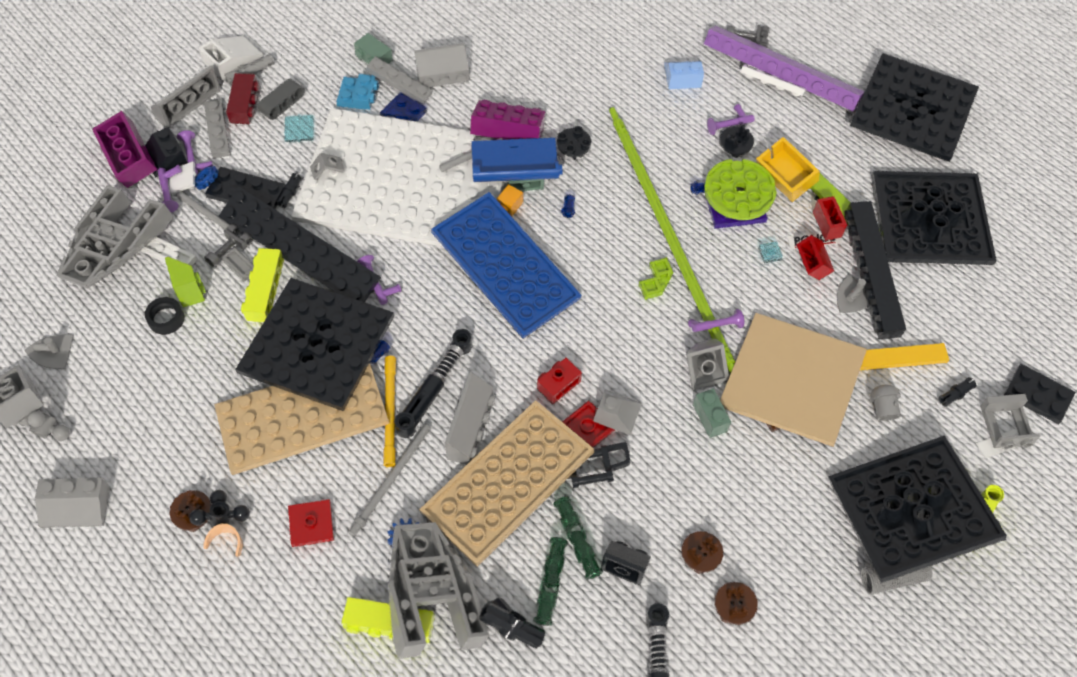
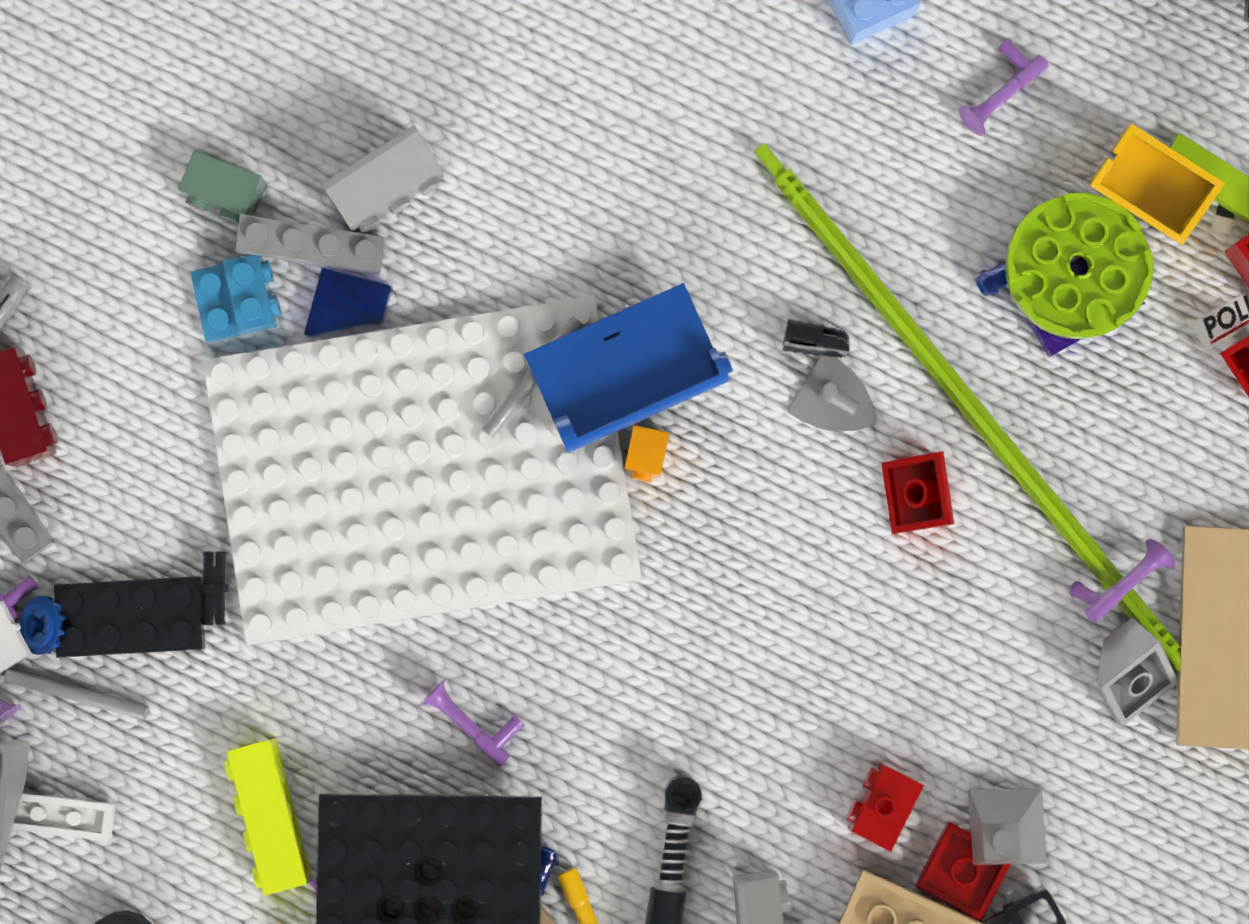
camera: 20 degrees left, 25 degrees up
(185, 282) = (126, 878): lime slope -> none
(231, 234) = (147, 793): flat silver bar -> none
(238, 263) = (197, 781): light grey tile -> none
(281, 99) = (92, 377): dark grey beam -> none
(299, 128) = (159, 429): clear light blue piece -> none
(299, 246) = (294, 710): black plate -> none
(326, 162) = (266, 514): light grey bracket -> none
(506, 121) = (573, 273): magenta brick -> none
(506, 264) = (697, 603): blue plate -> none
(568, 207) = (761, 418): clear blue pin -> none
(579, 140) = (706, 258): black plate -> none
(605, 212) = (833, 398): none -> light grey shield
(608, 185) = (815, 339): none -> black hinge
(629, 257) = (918, 493): none -> red slope
(662, 275) = (989, 503): lime tile -> none
(711, 413) = (1173, 770): sand green brick -> none
(736, 140) = (1020, 147): black plate -> none
(770, 252) = (1173, 381): clear light blue plate -> none

